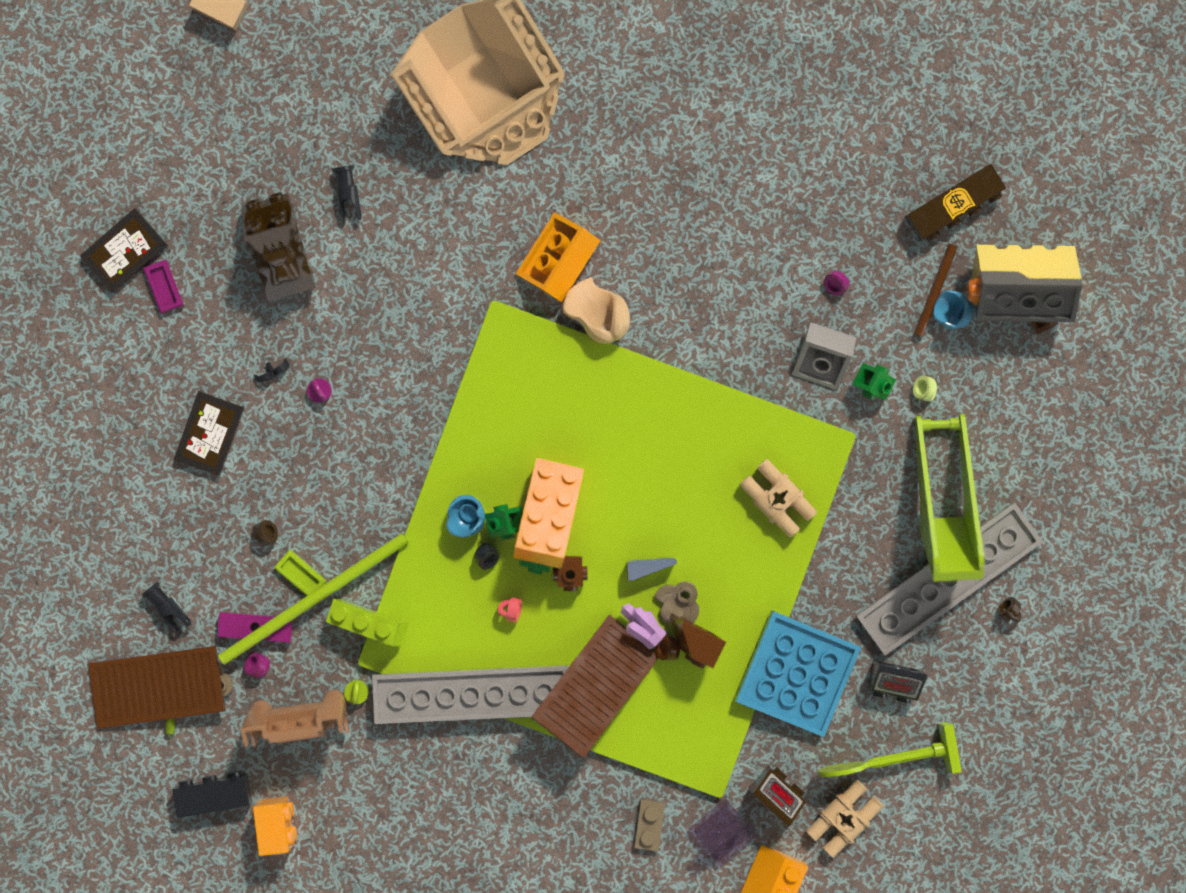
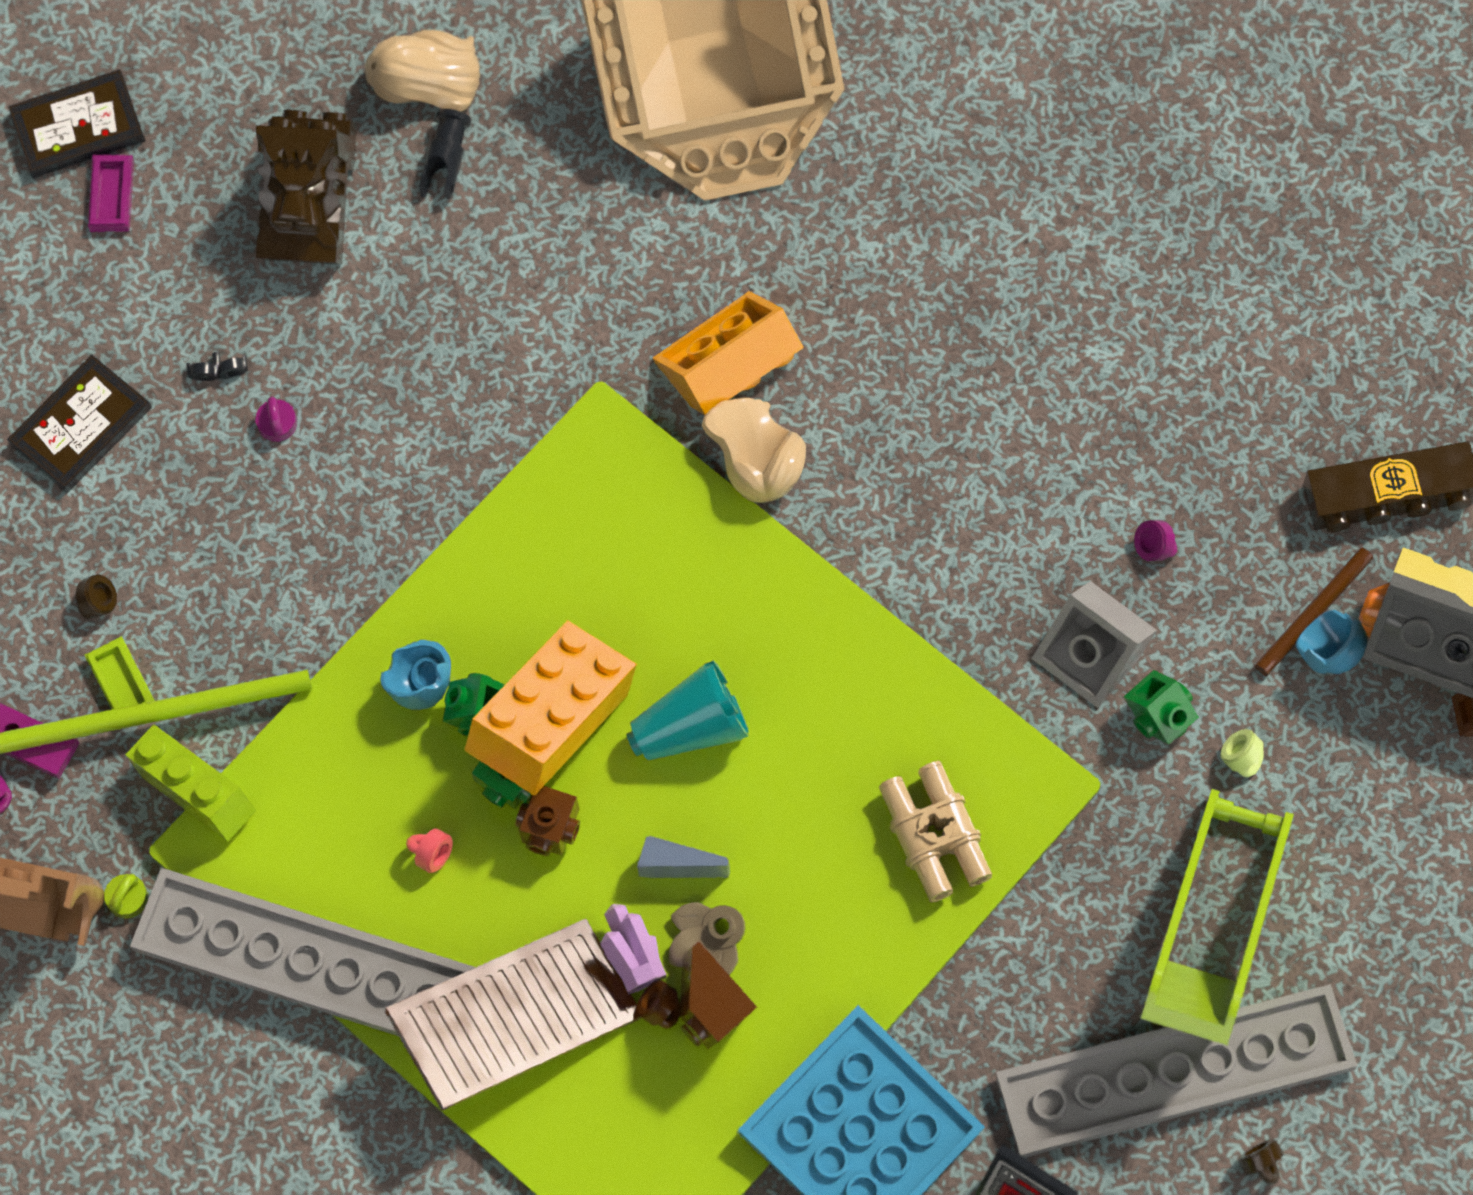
camera: 25 degrees right, 20 degrees down
(313, 144) = (425, 69): none -> tan piece
(486, 556) = (425, 752): black tile -> none
(624, 485) = (689, 717): none -> teal cone

